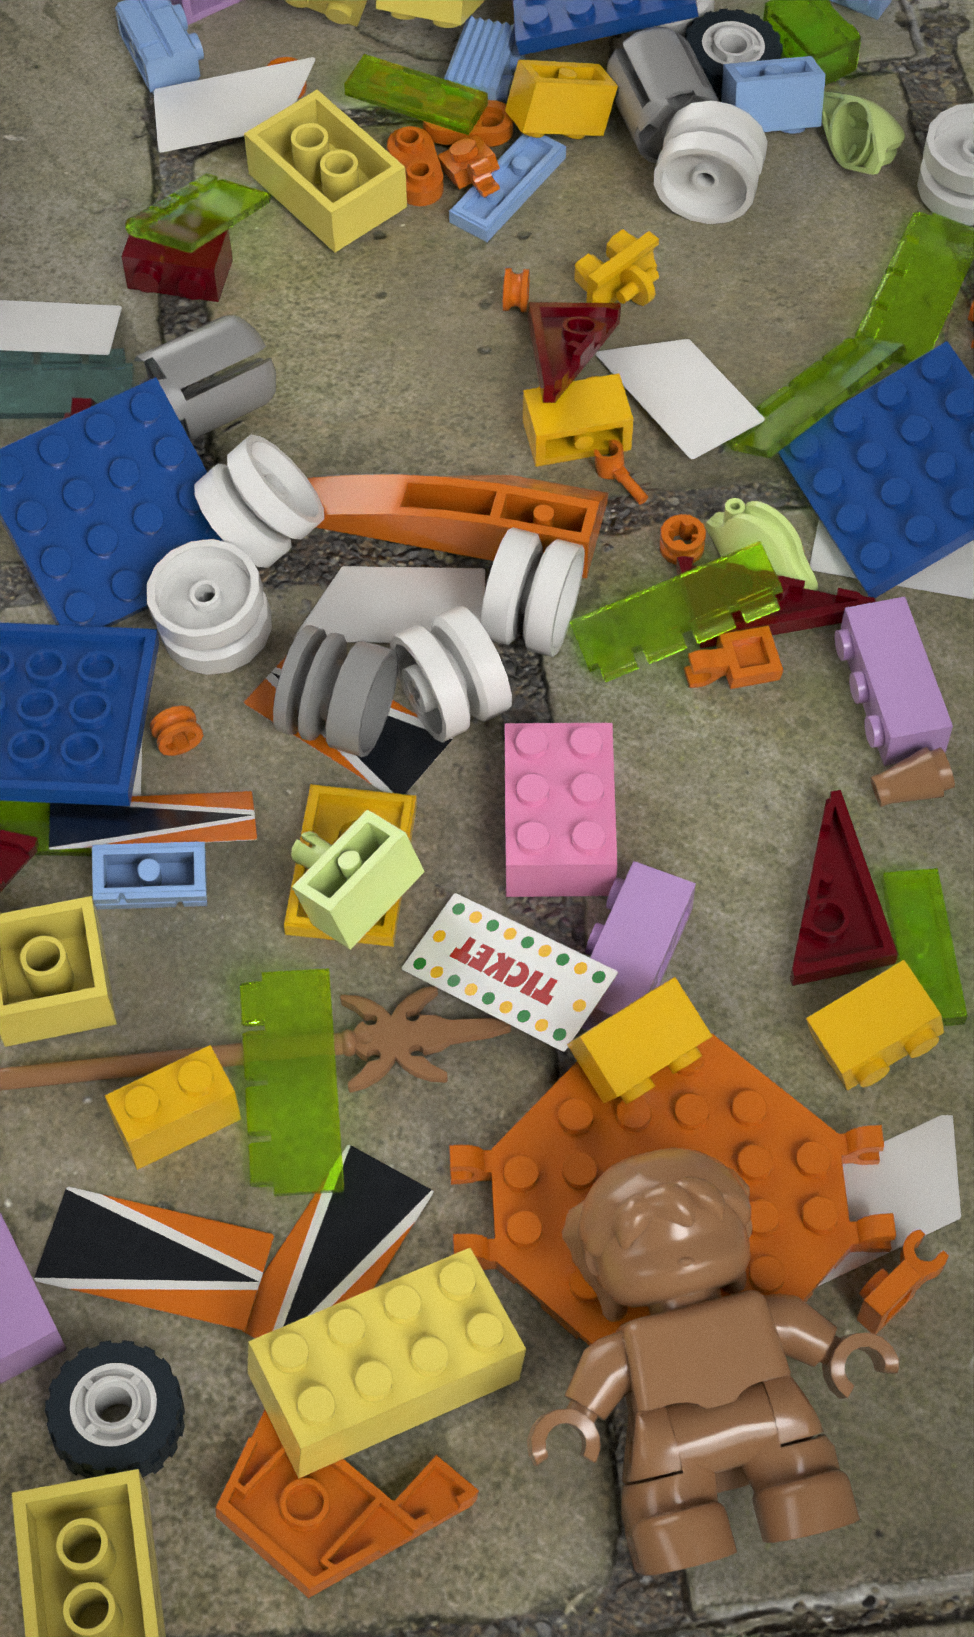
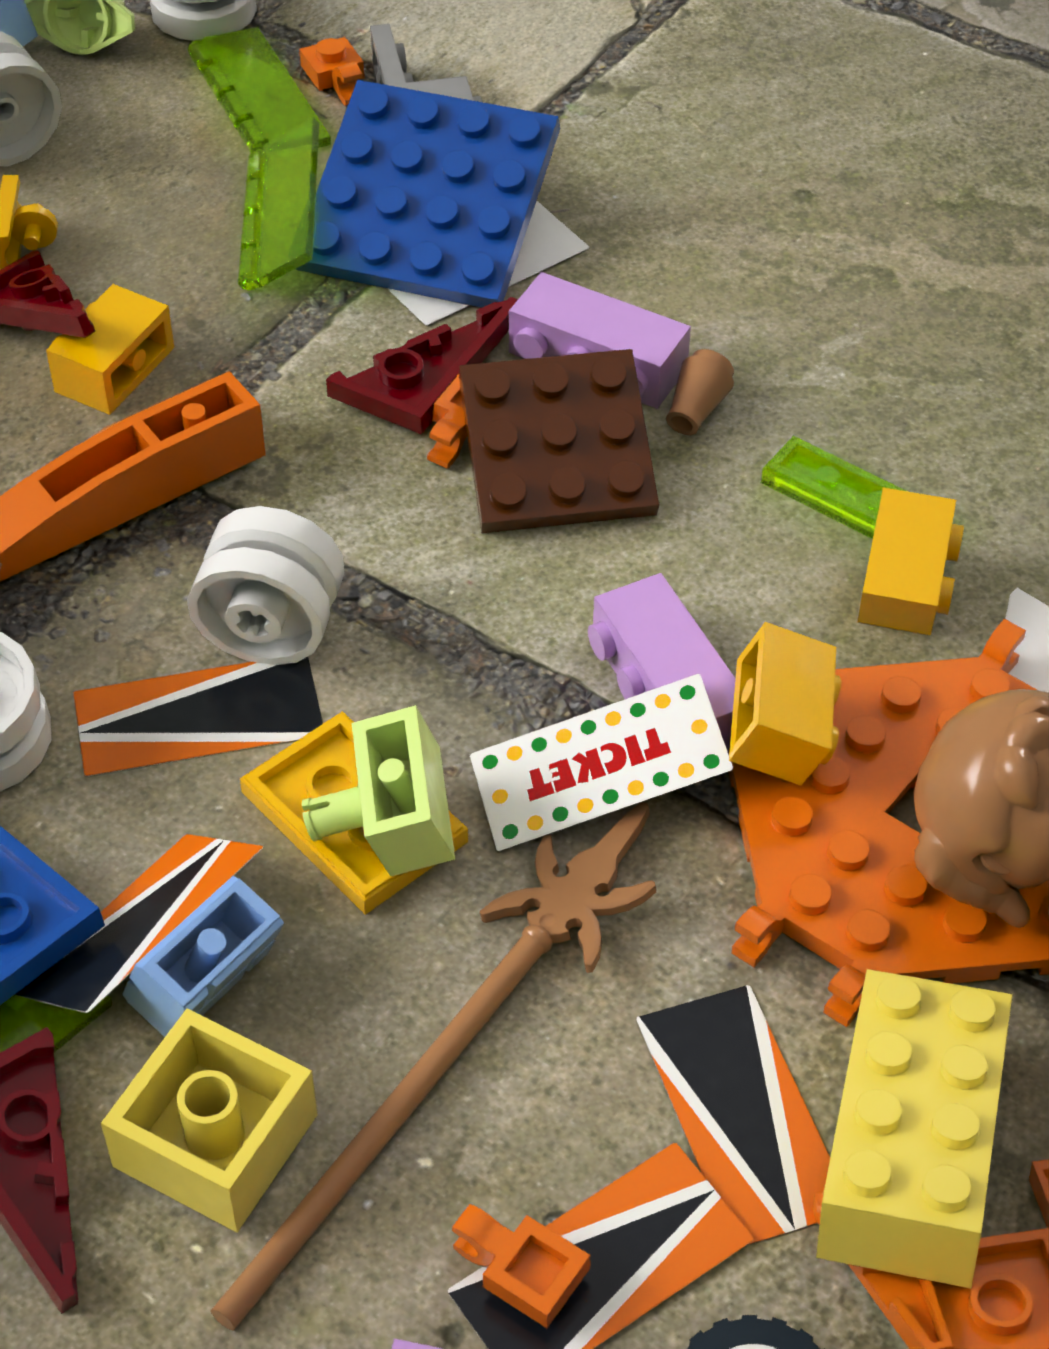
camera: 50 degrees left, 10 degrees down
(107, 1216) = (525, 1267): none -> orange plate
(173, 1107) = (469, 1120): yellow brick -> none
(176, 730) = (62, 837): orange bush -> none
(302, 1093) = (559, 1009): clear neon green windscreen -> none
(335, 690) = (171, 681): light grey wheel -> none
(385, 601) = (121, 600): white sticker -> none
(532, 591) = (254, 465): white wheel -> none
(559, 809) = (478, 619): bright pink brick -> none
(614, 468) = (176, 366): orange hand -> none
(683, 393) = (176, 273): white sticker -> none
(688, 528) = (305, 372): orange bush -> none
(690, 601) = (372, 416): clear neon green windscreen -> none
(754, 522) = (366, 322): yellowish green hat -> none
(765, 731) = (557, 441): none -> reddish brown plate
(842, 915) = (774, 519): dark red wing -> none

